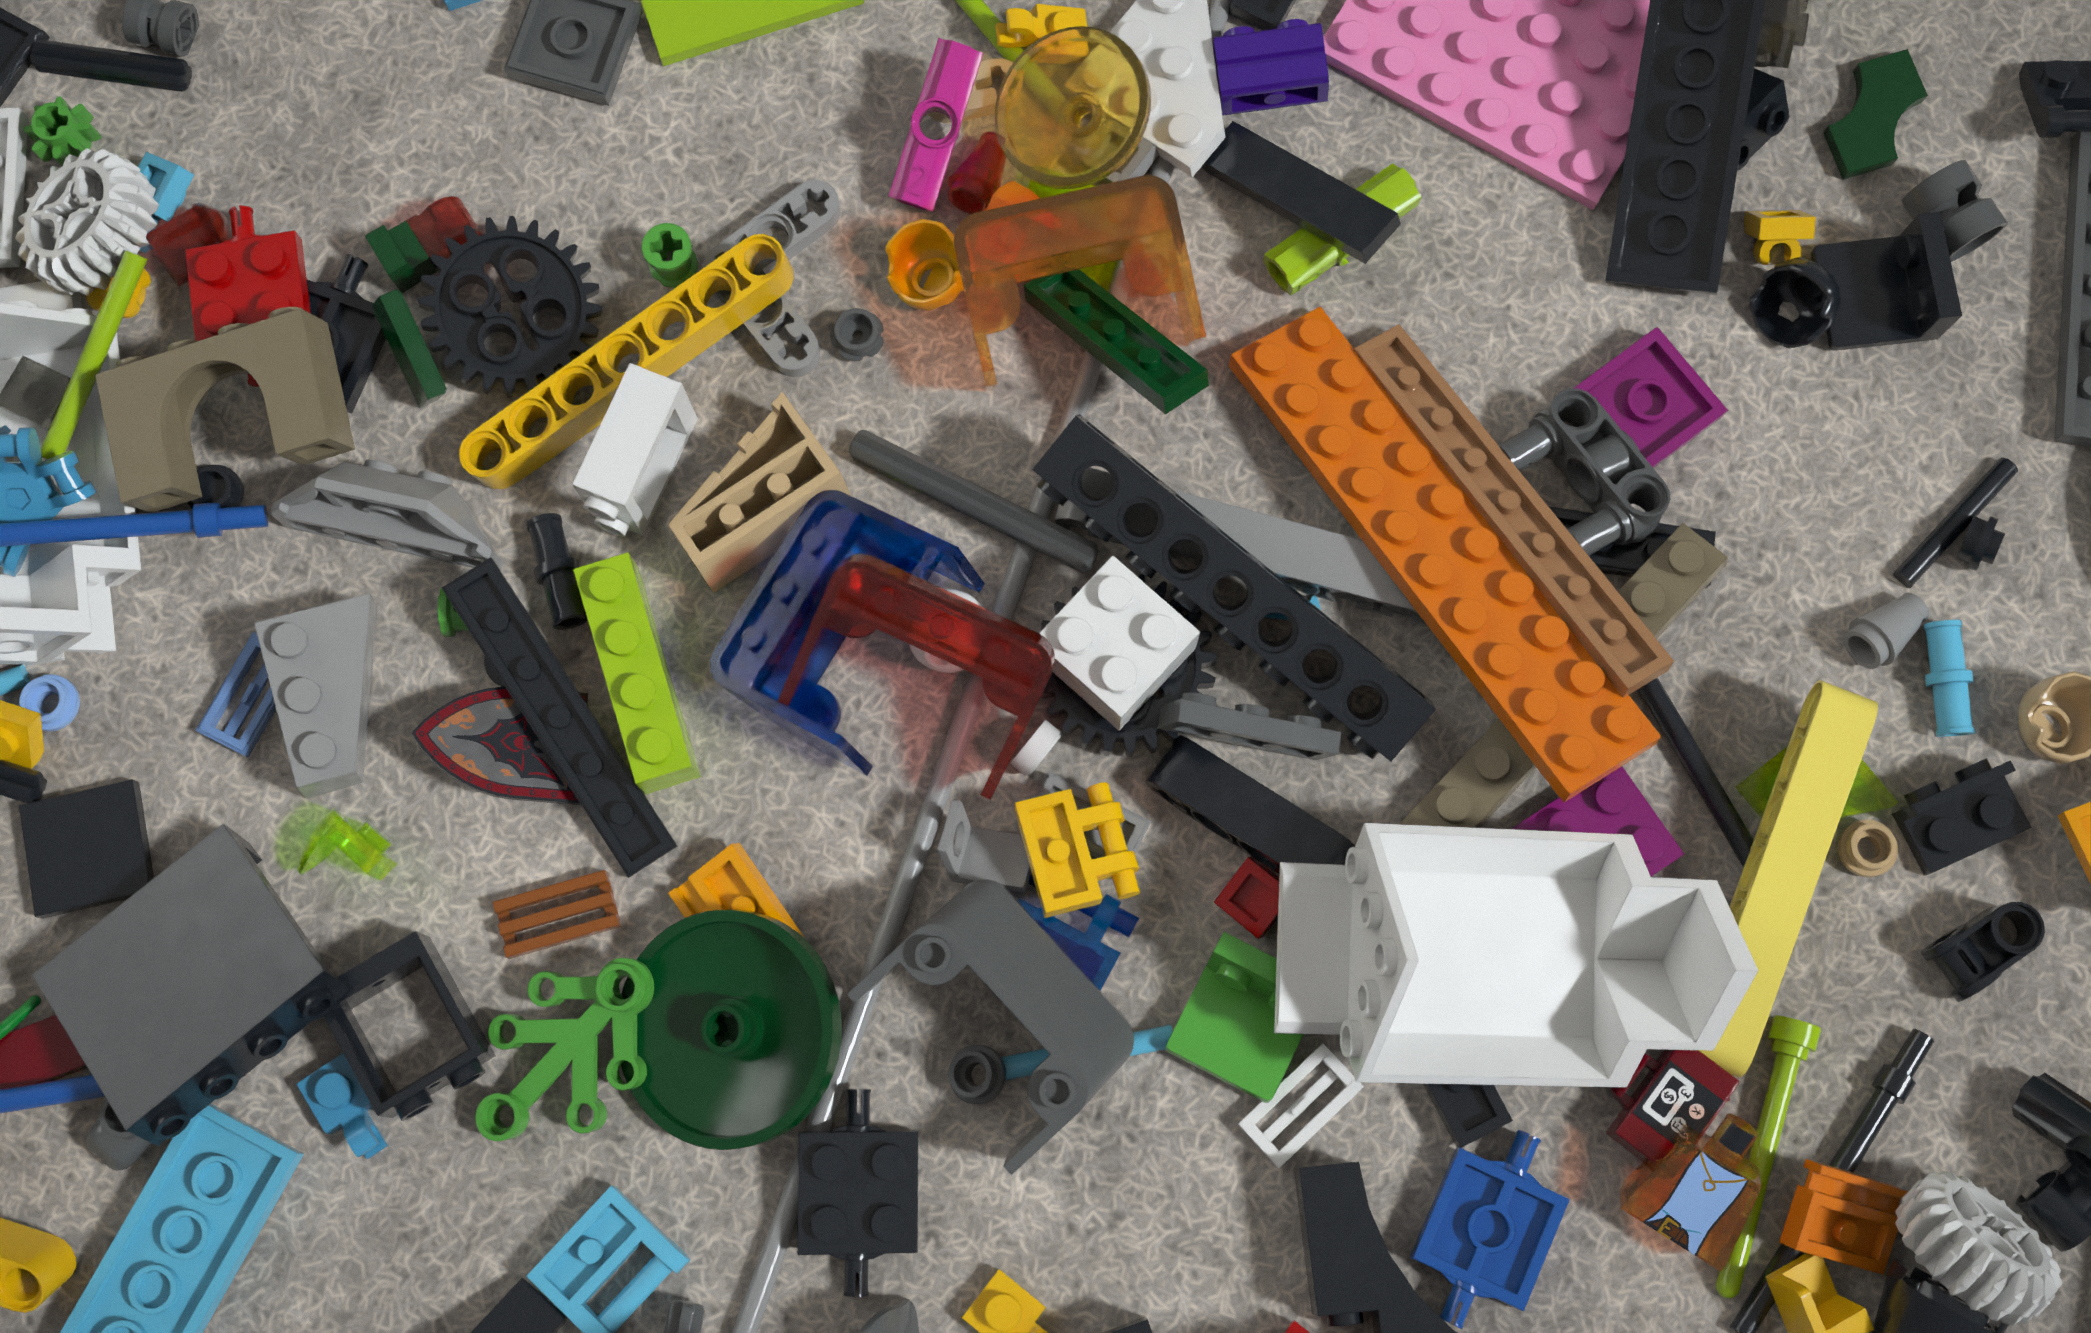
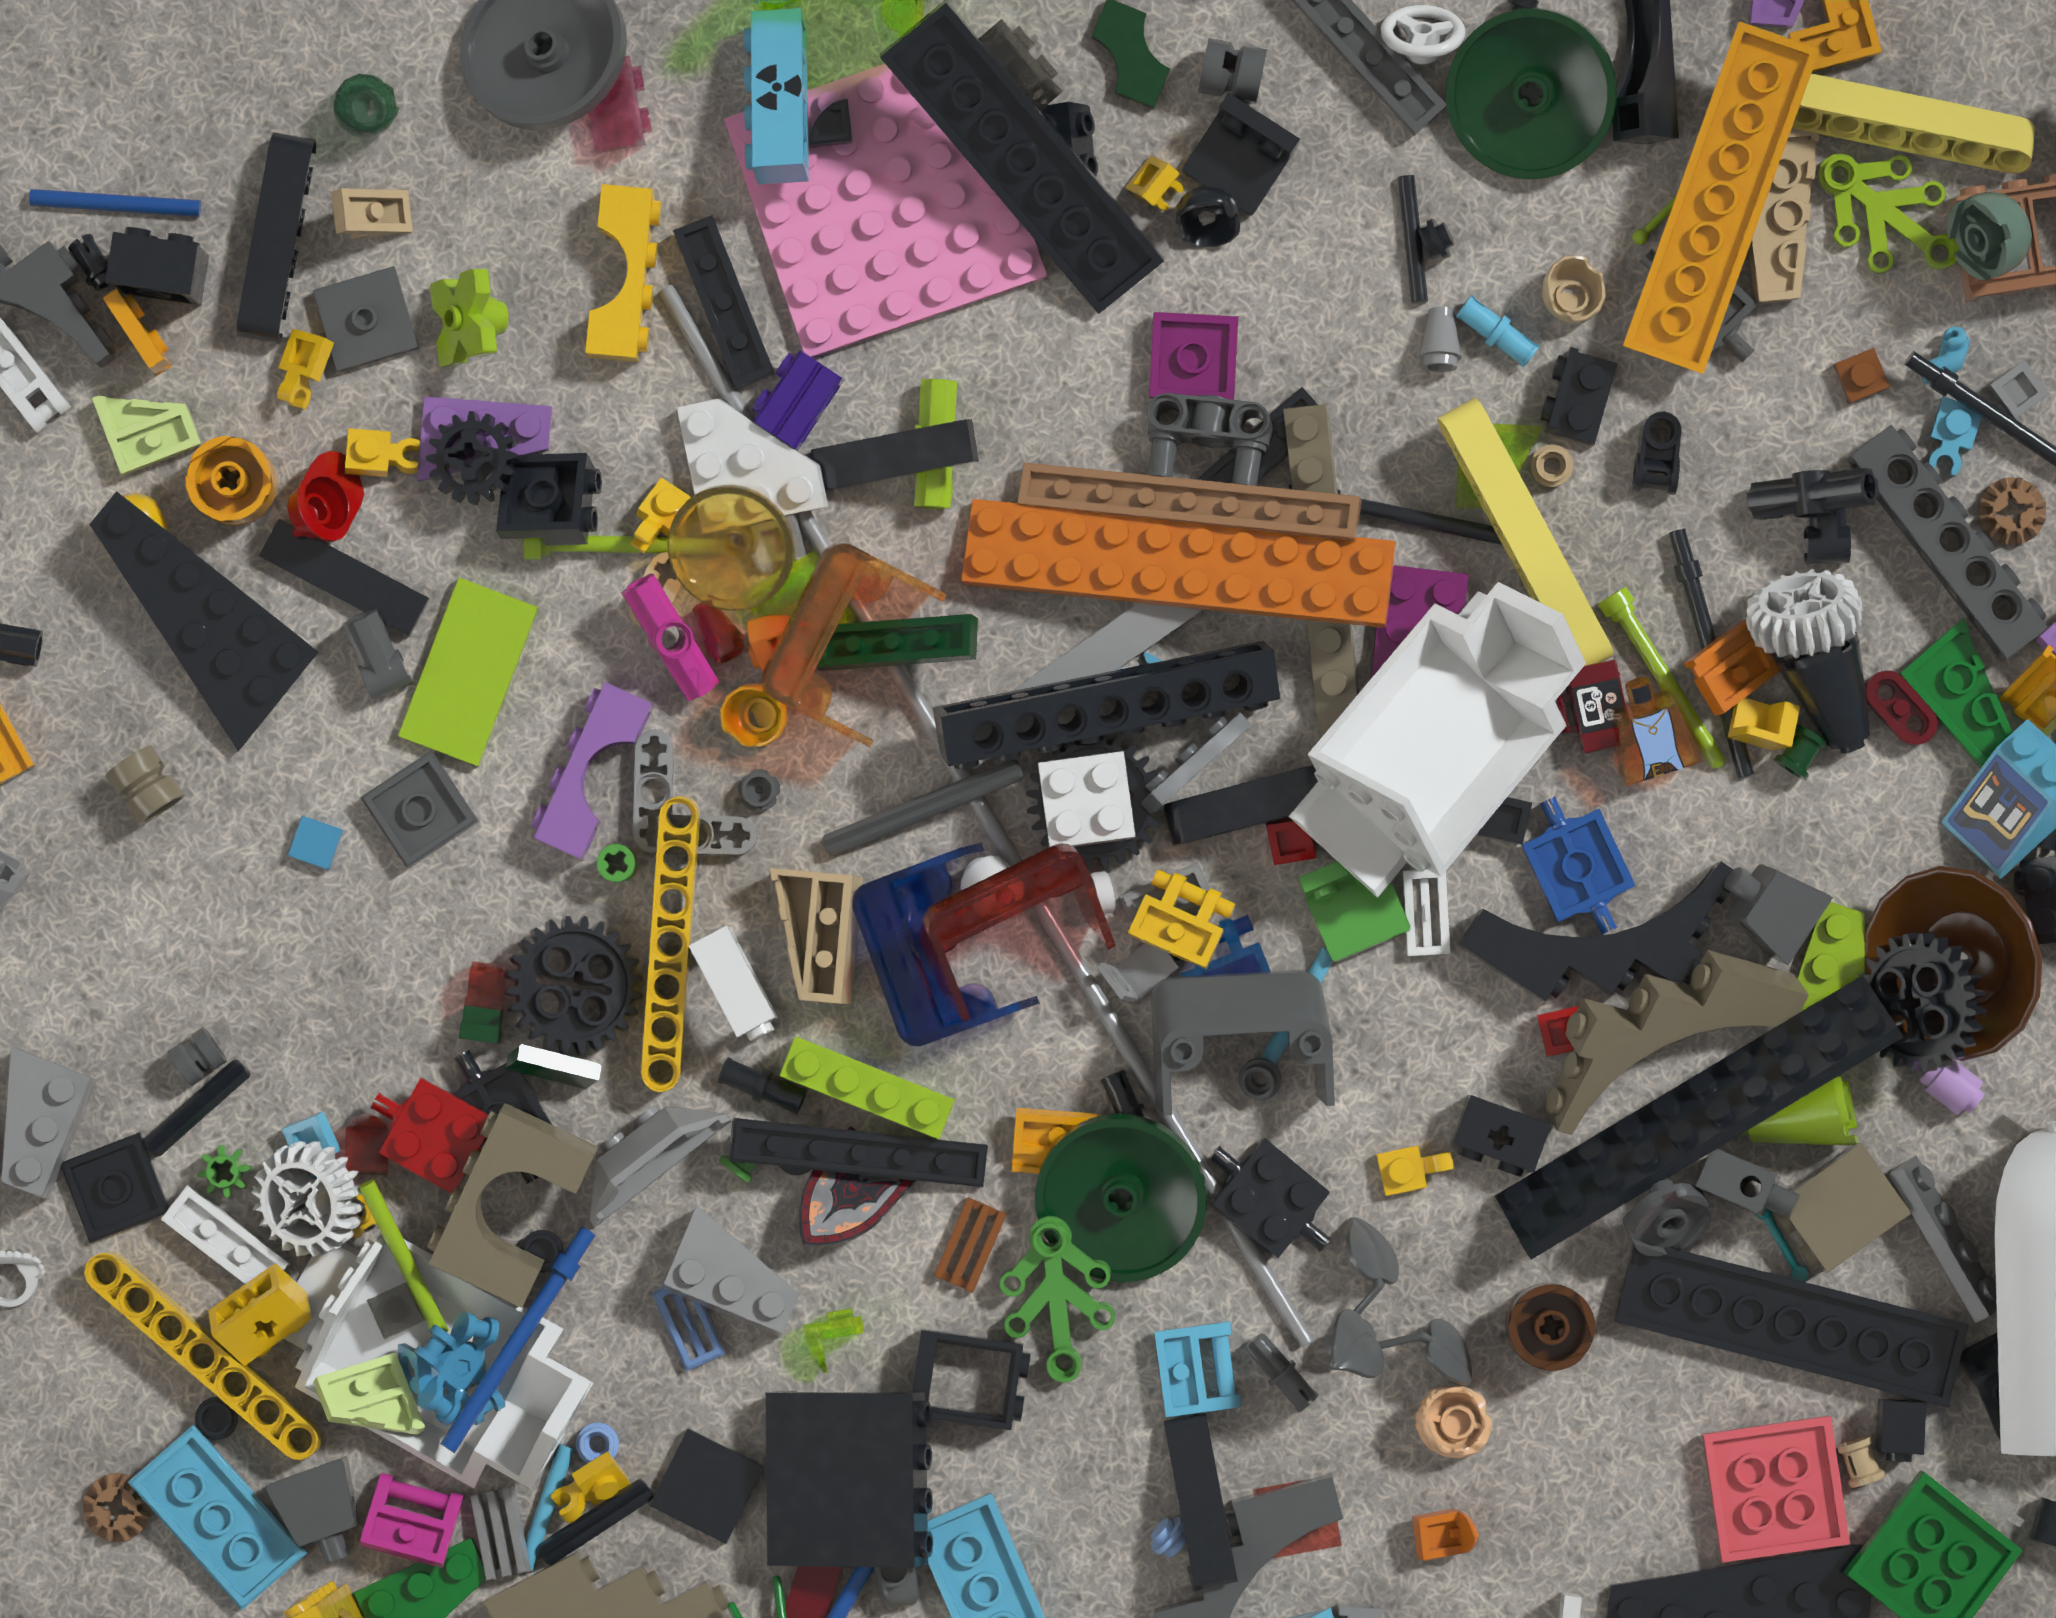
camera: 50 degrees left, 10 degrees up
(342, 1103) = (976, 1447): dark azure plate -> none
(680, 172) = (613, 720): none -> medium lavender arch
(842, 942) = (1121, 1094): none -> black pin

